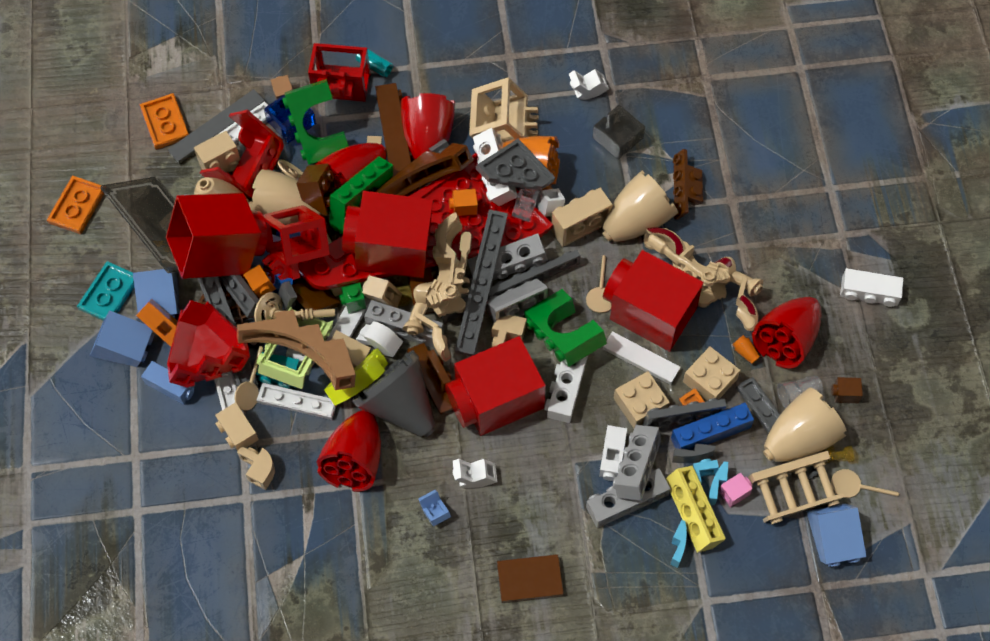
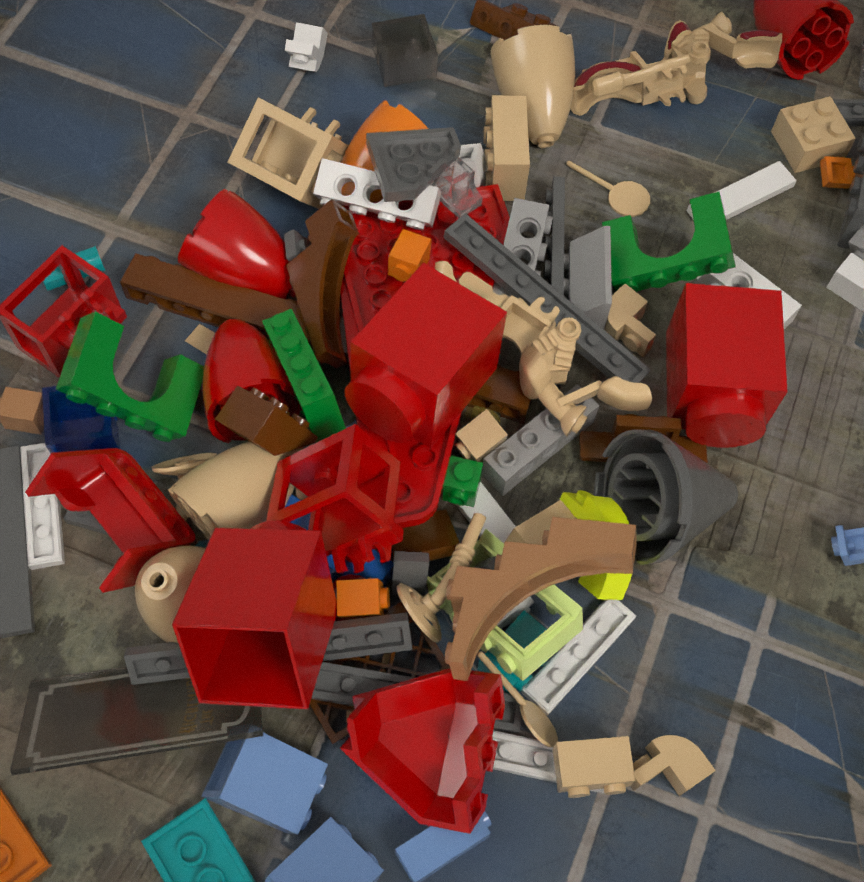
camera: 65 degrees left, 0 degrees up
(158, 320) = (331, 798): orange brick -> none
(218, 152) = (77, 556): tan brick -> none
(352, 453) = (722, 606): red cylinder -> none
(380, 337) = (544, 482): white brick -> none
(474, 474) = (828, 465): white brick -> none
(639, 397) = (810, 222): tan brick -> none
(652, 298) = (687, 126): red container -> none
(746, 349) = (789, 85): orange cone -> none

